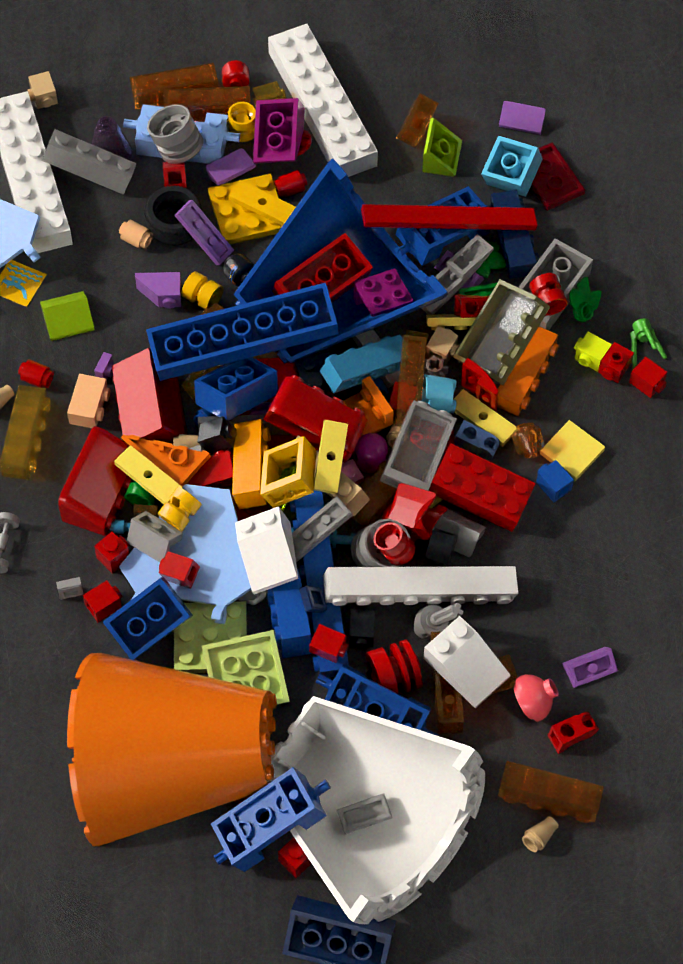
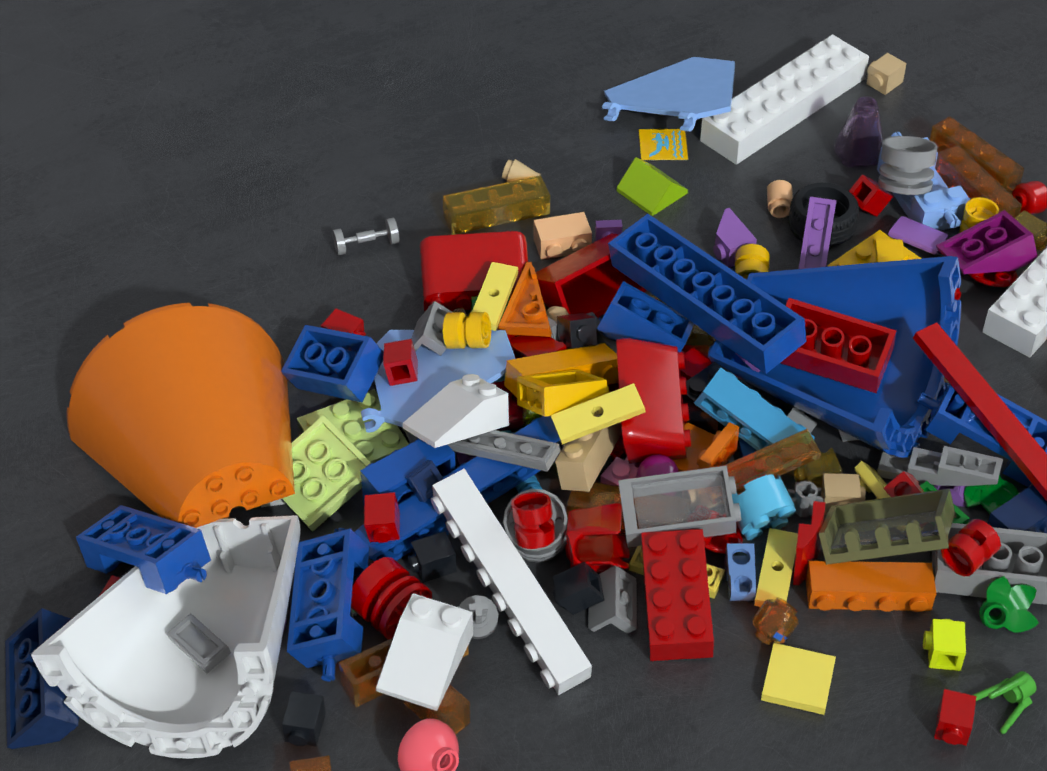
camera: 65 degrees right, 15 degrees down
(35, 374) = (567, 189): red brick -> none
(69, 588) = (343, 300): light grey tile -> none
(89, 161) = (826, 124): light grey brick -> none
(112, 551) = (401, 313): red brick -> none
(382, 293) = (856, 396): magenta bracket -> none
(554, 480) = (740, 671): blue brick -> none
(615, 362) = (948, 672): red brick -> none

